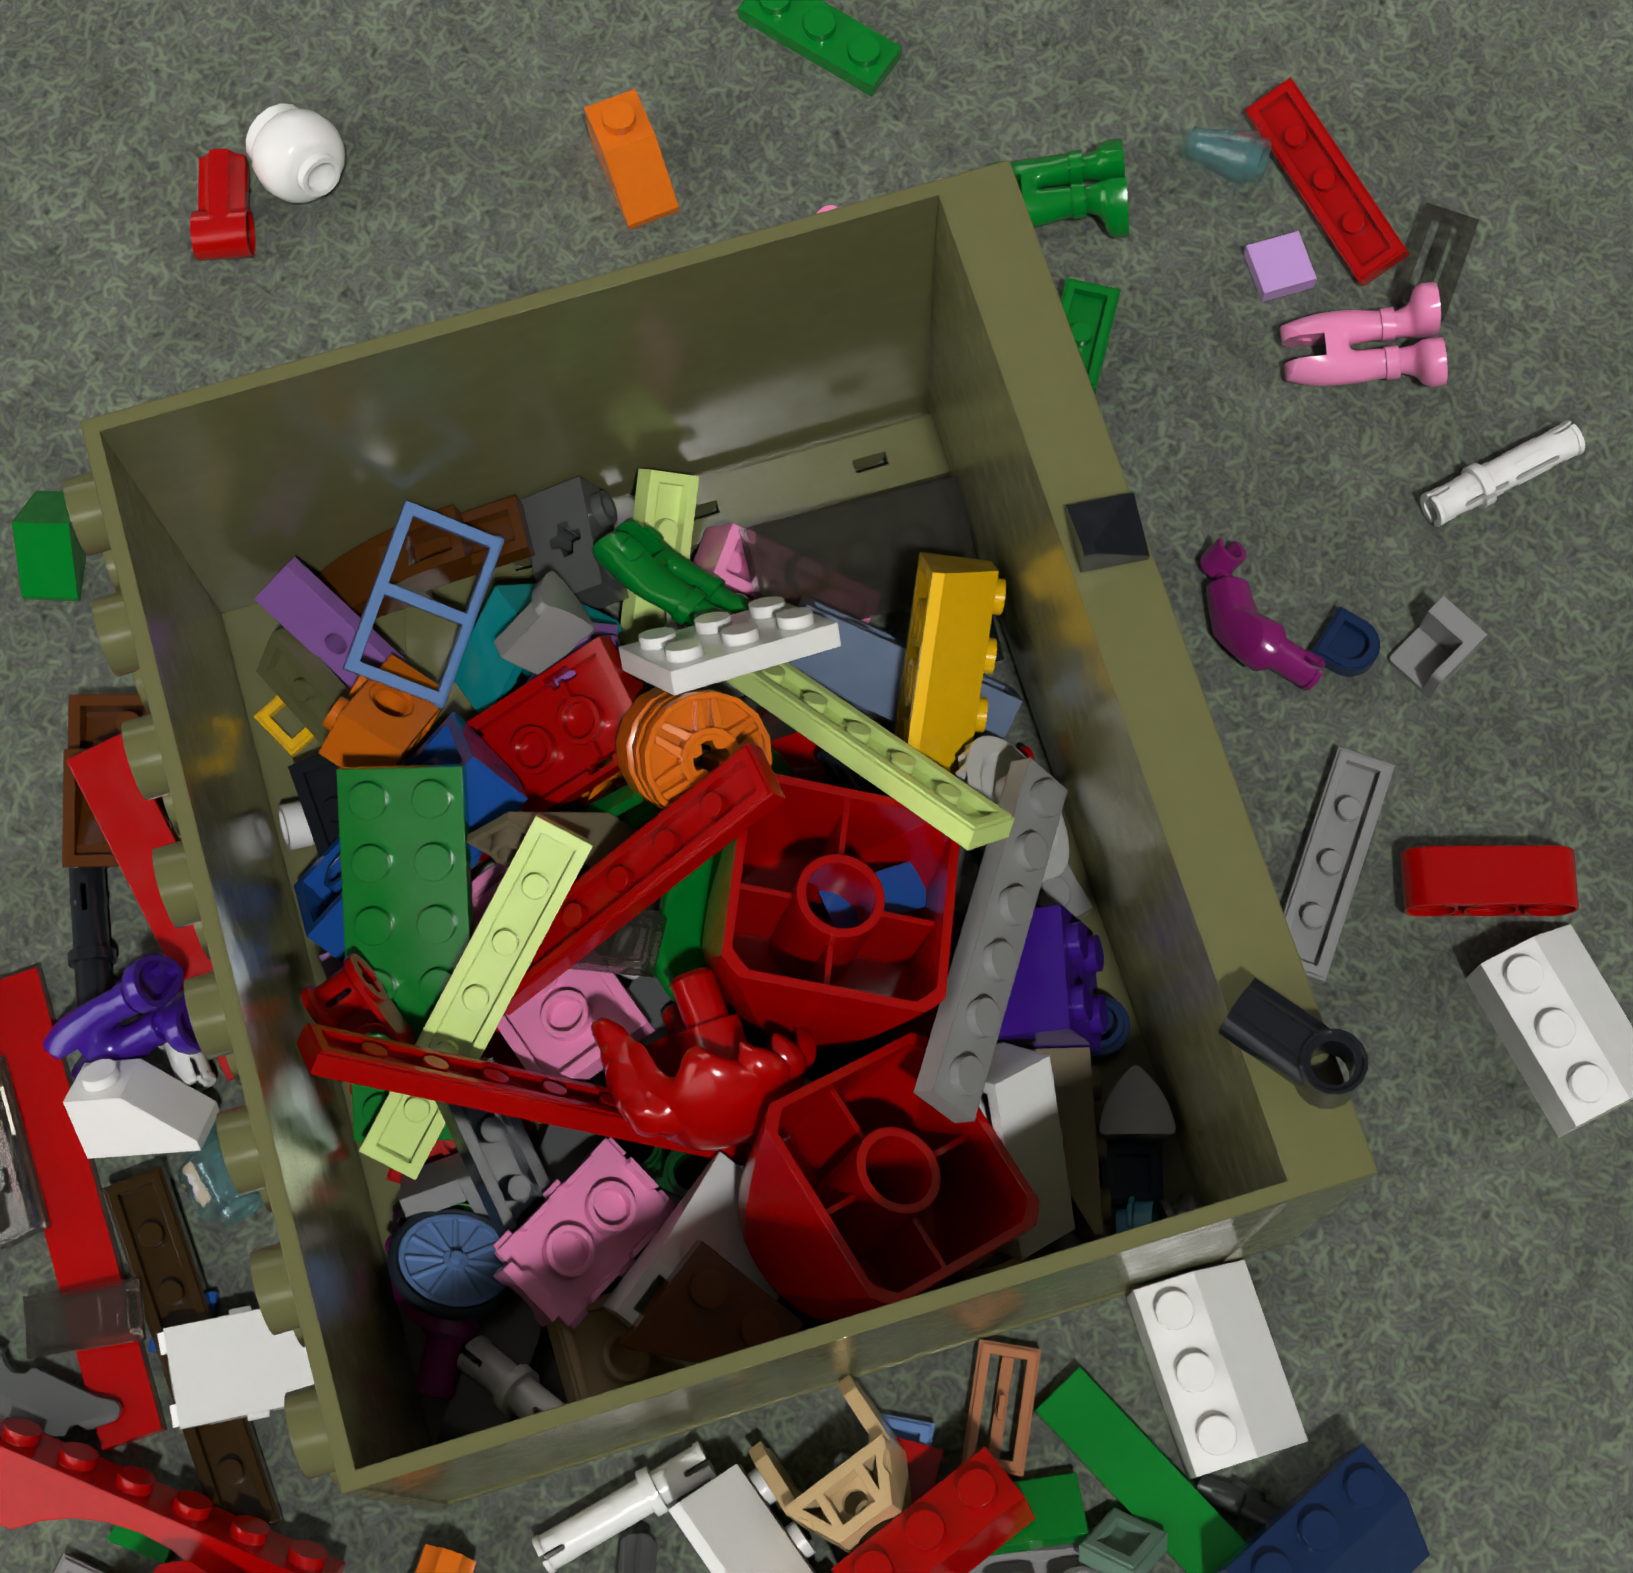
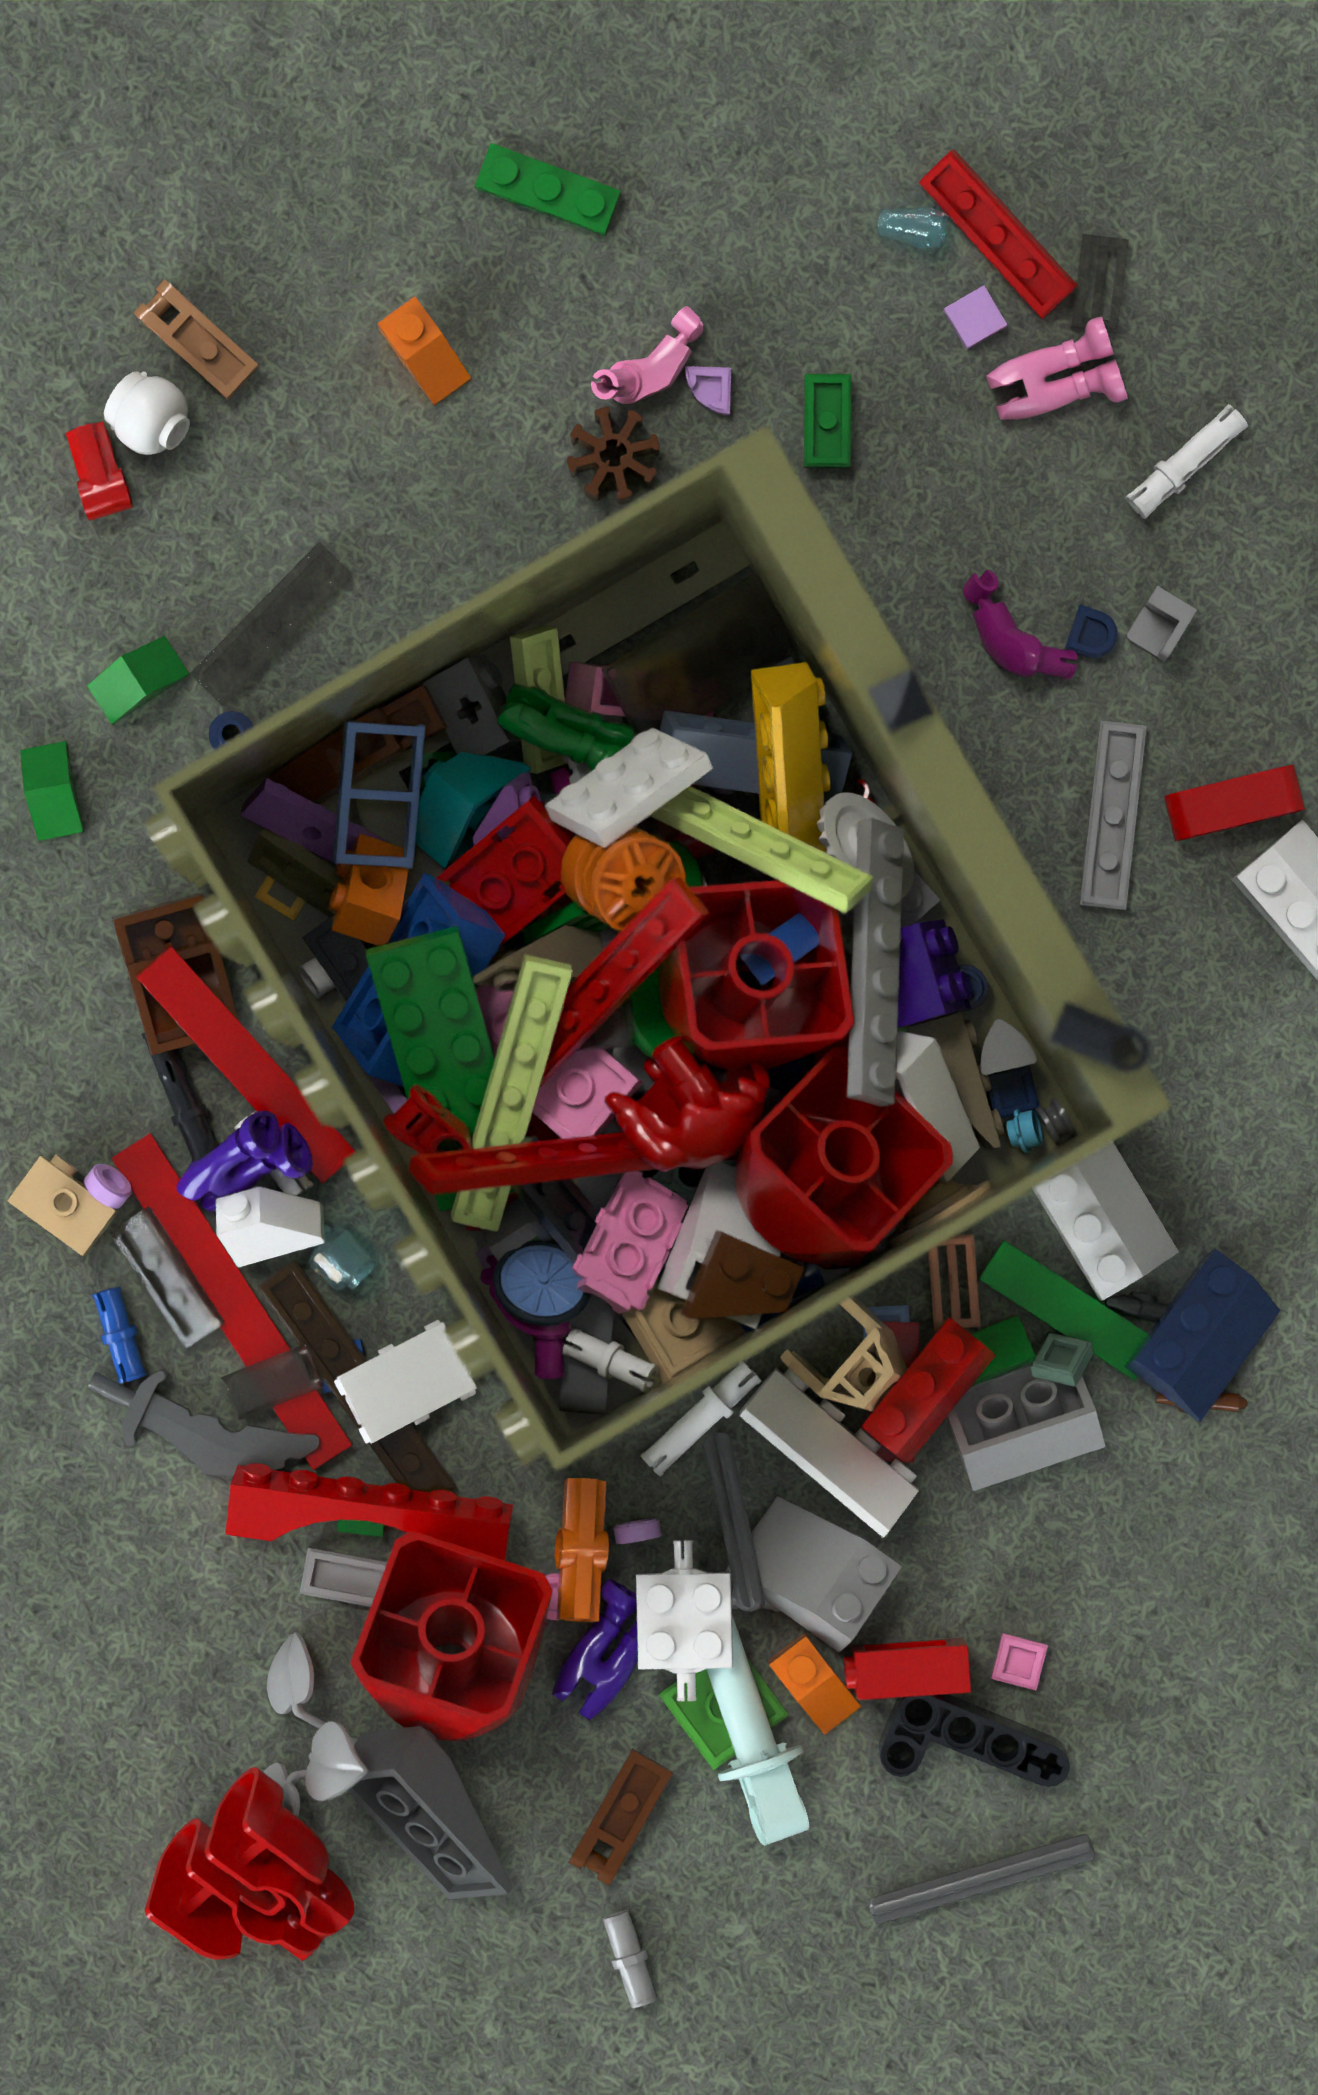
camera: 15 degrees left, 15 degrees up
(380, 100) = (197, 341): none -> medium nougat plate
(546, 627) = (486, 800): light grey tile -> none
(1105, 199) = (769, 316): green piece -> none

